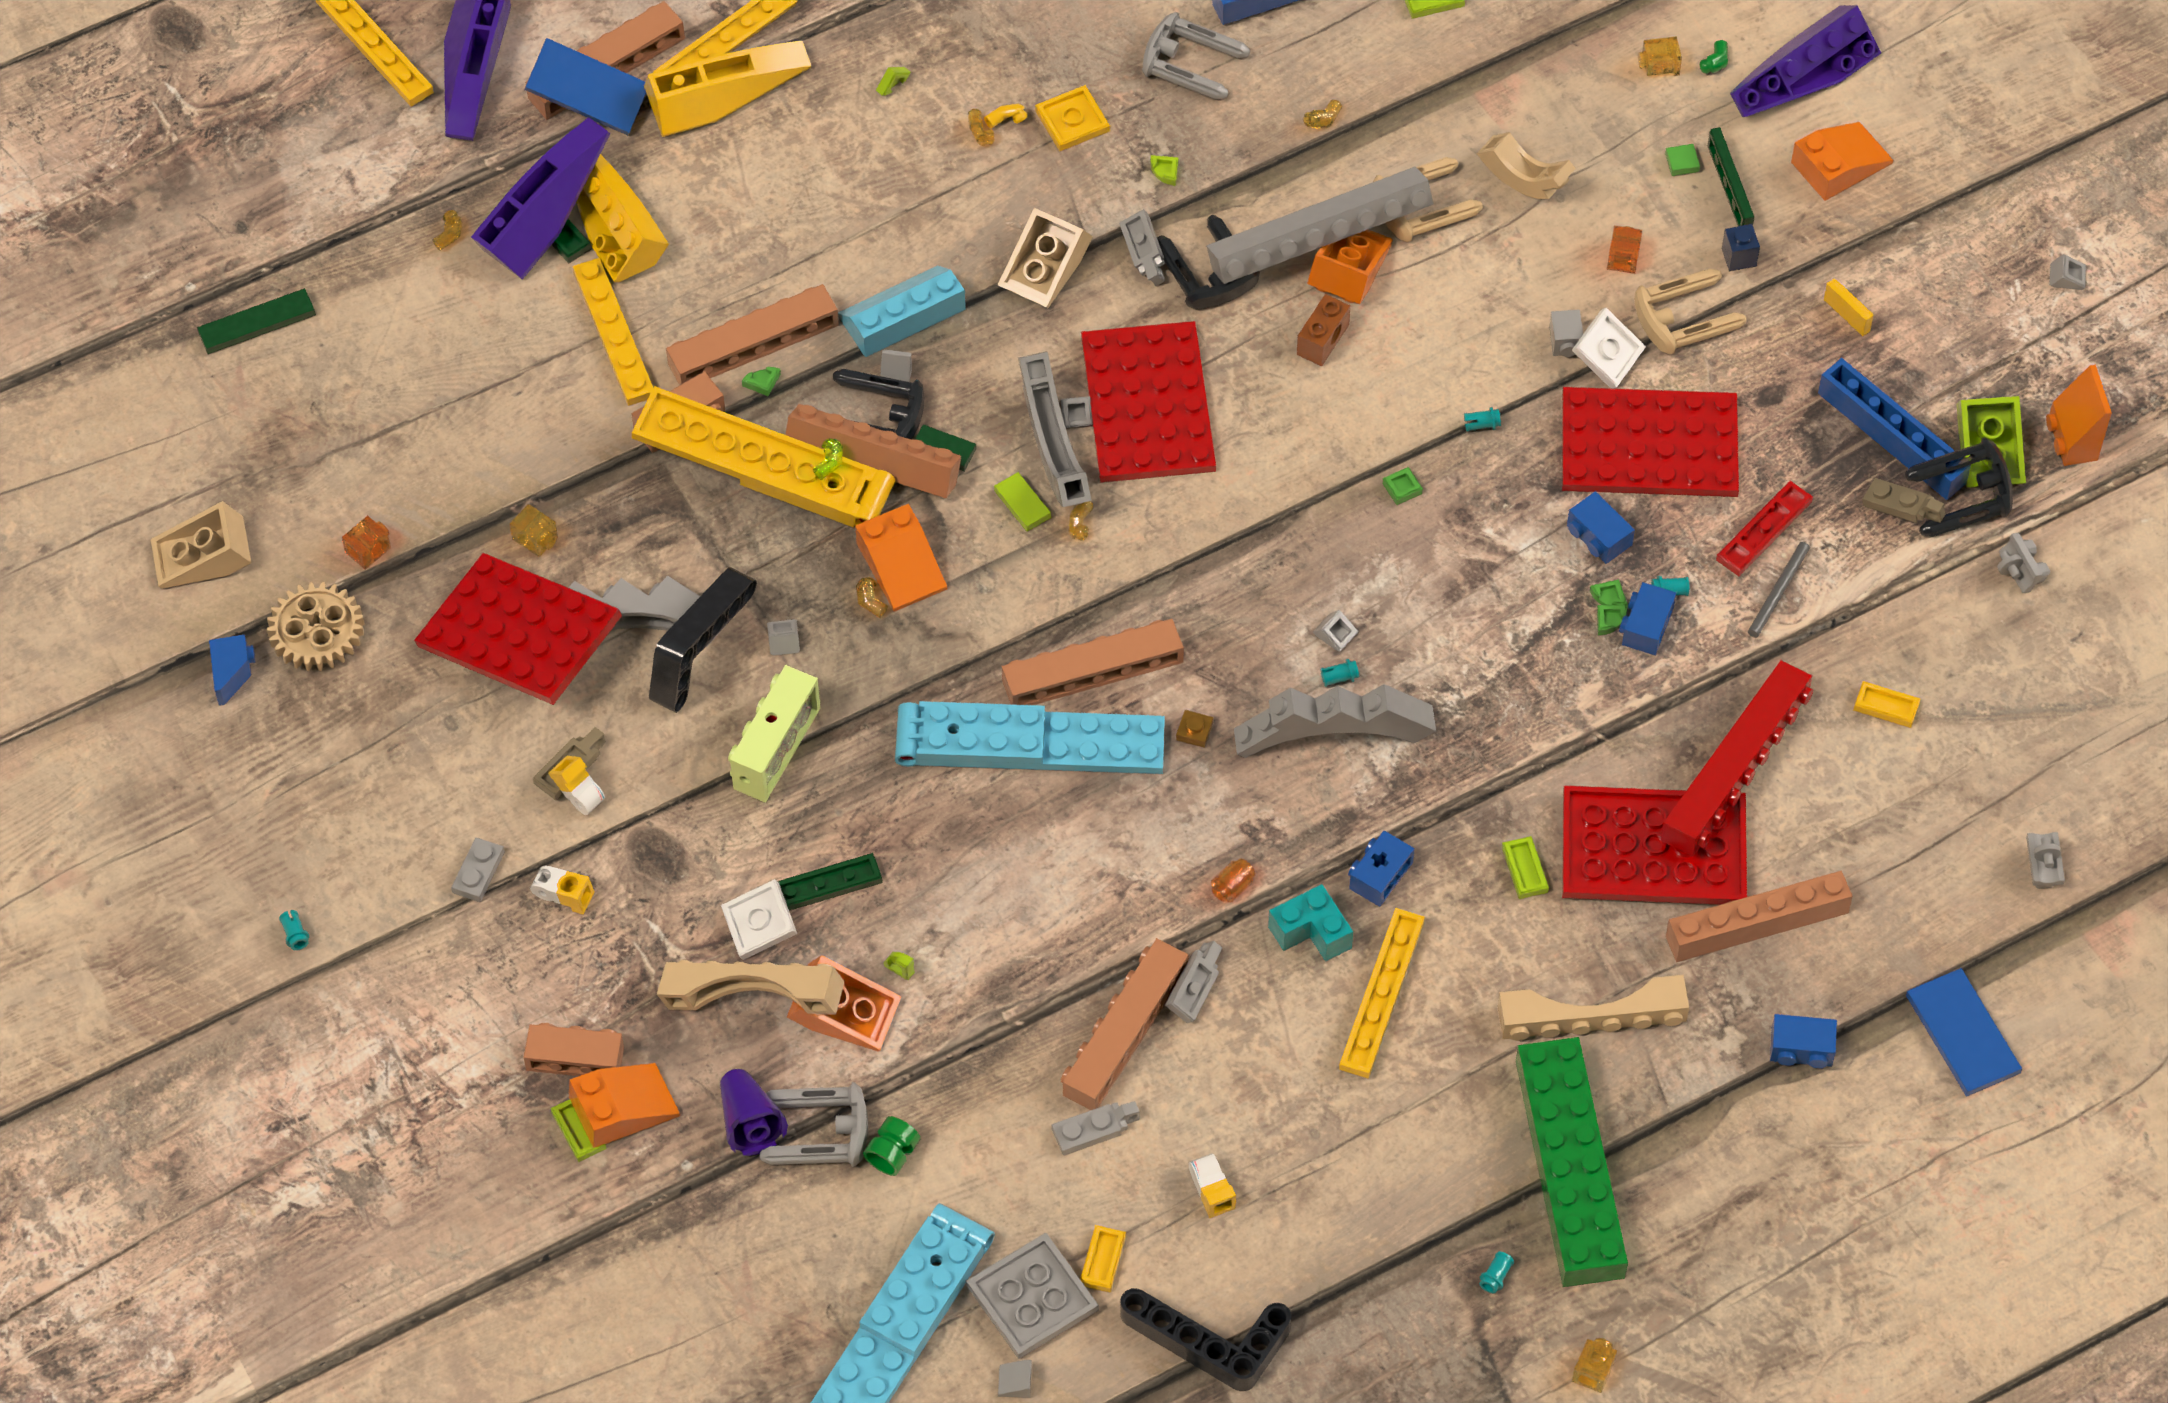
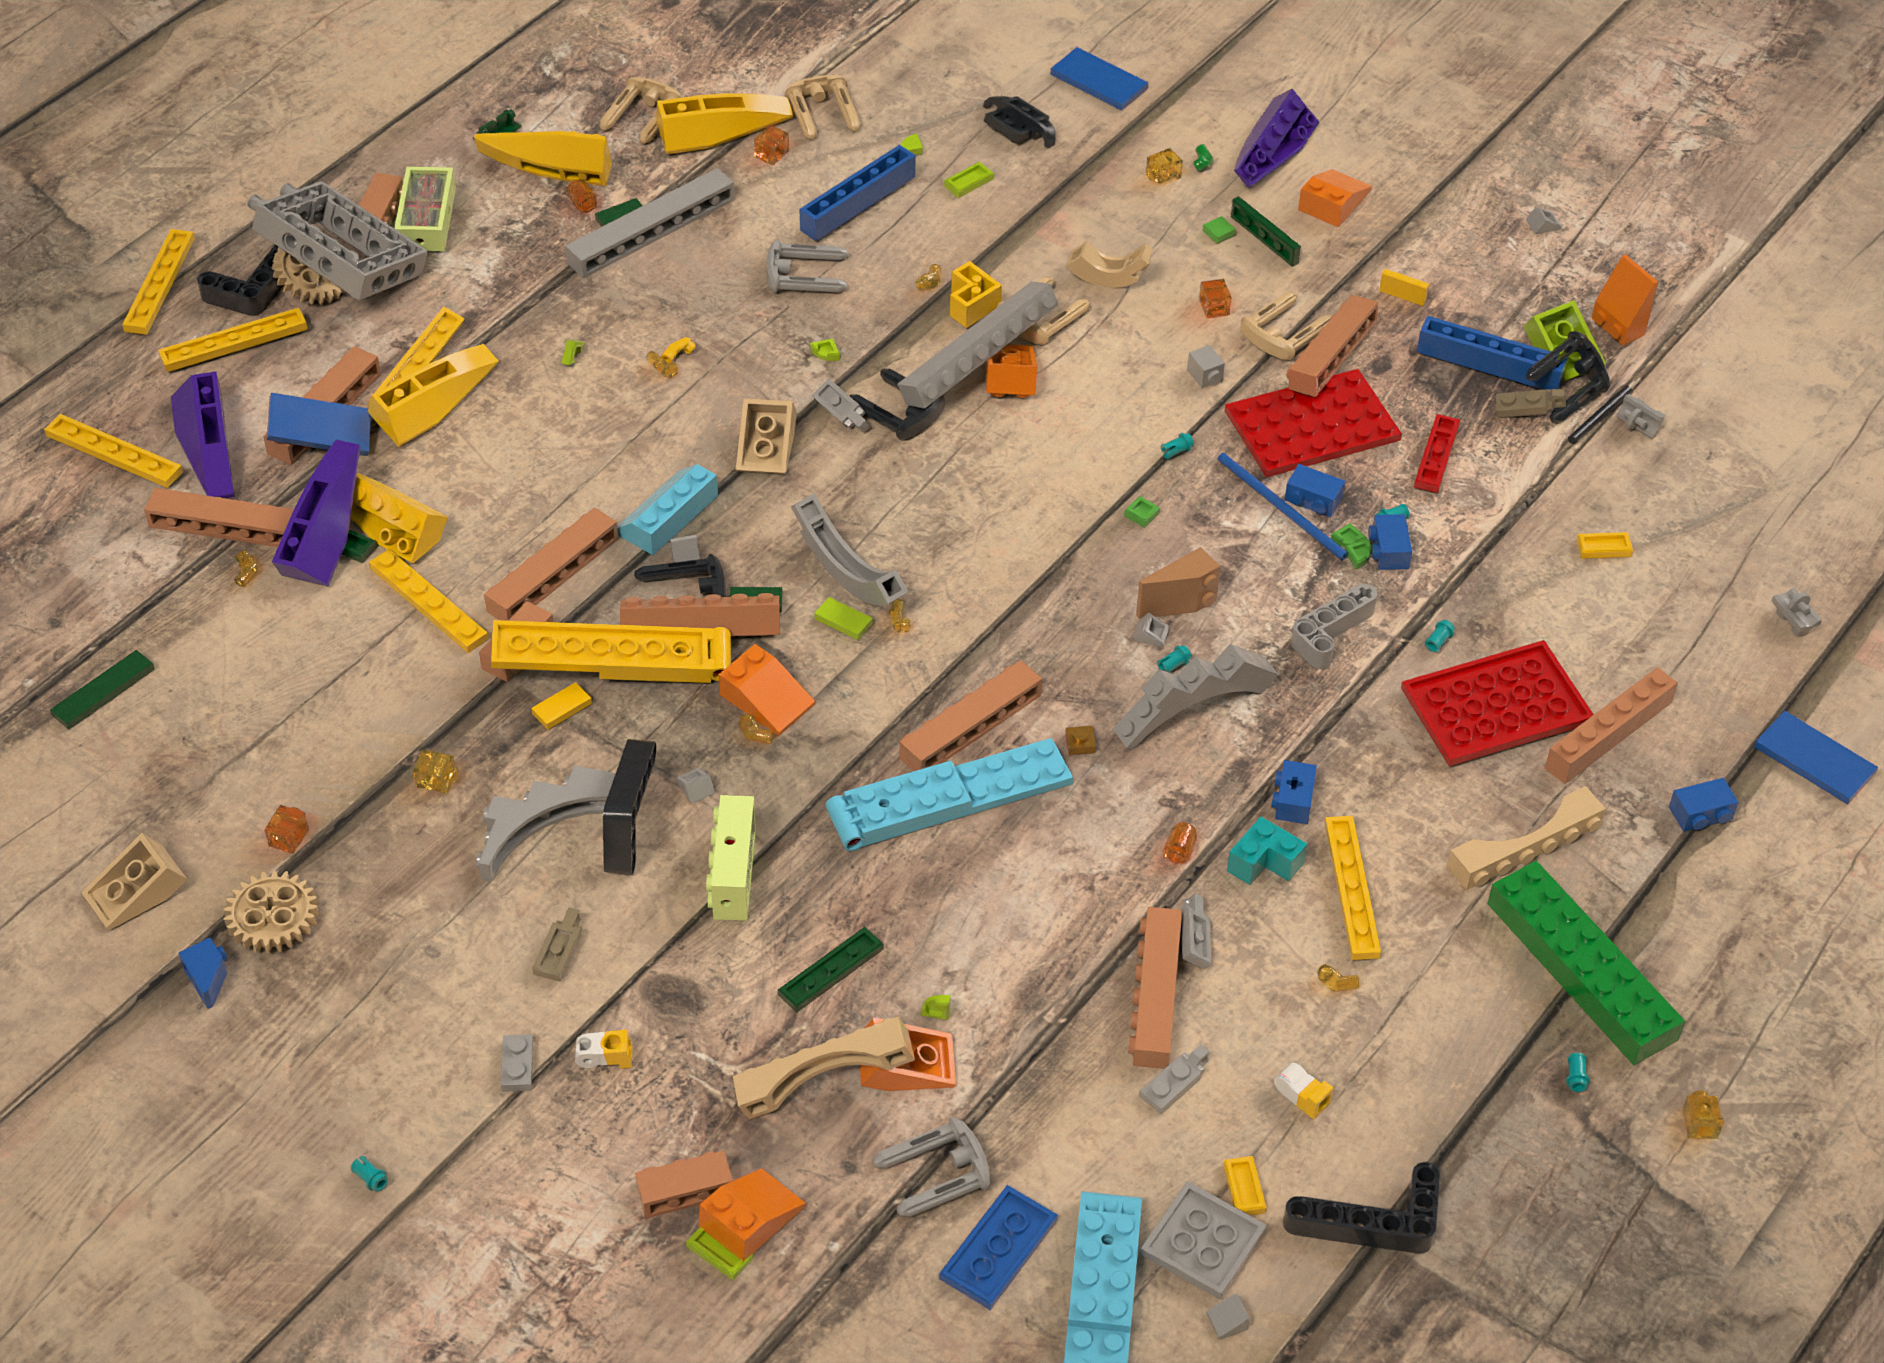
camera: 25 degrees left, 10 degrees down
(442, 159) = (217, 517): none -> nougat brick
(518, 628) = (461, 850): red plate -> none
(577, 784) = (576, 958): leg -> none
(691, 500) = (561, 706): none -> yellow tile
(749, 1114) = (873, 1177): dark purple cone -> none
(759, 919) = (794, 1014): white tile -> none
(762, 380) = (574, 598): bright green tile -> none
(833, 458) = (674, 627): clear neon green arm -> none
(837, 1226) = (998, 1247): none -> blue tile
(889, 1150) = (1013, 1159): green wheel -> none
(1072, 118) = (732, 337): yellow tile -> none
(1076, 412) = (854, 537): light grey slope -> none
(1148, 401) = (905, 514): red plate -> none
(1308, 1085) = (1335, 981): none -> clear yellow arm
(1323, 330) = (1018, 420): dark orange brick -> none
(1357, 157) = (973, 294): none -> yellow brick
(1383, 593) = (1180, 586): none -> medium nougat slope
(1525, 867) = (1405, 754): lime tile -> none
(1558, 532) = (1283, 506): none -> blue piece
(1570, 681) = (1315, 631): none -> light grey beam
(1608, 348) = (1245, 366): white tile -> none
(1644, 743) = (1443, 631): none -> teal pin
(1719, 356) = (1332, 345): none -> nougat brick
(1737, 758) = (1525, 616): red brick -> none
(1740, 247) = (1300, 271): dark blue brick -> none
(1778, 589) = (1473, 492): dark grey bar -> none
(1979, 544) = (1599, 414): none -> black bar

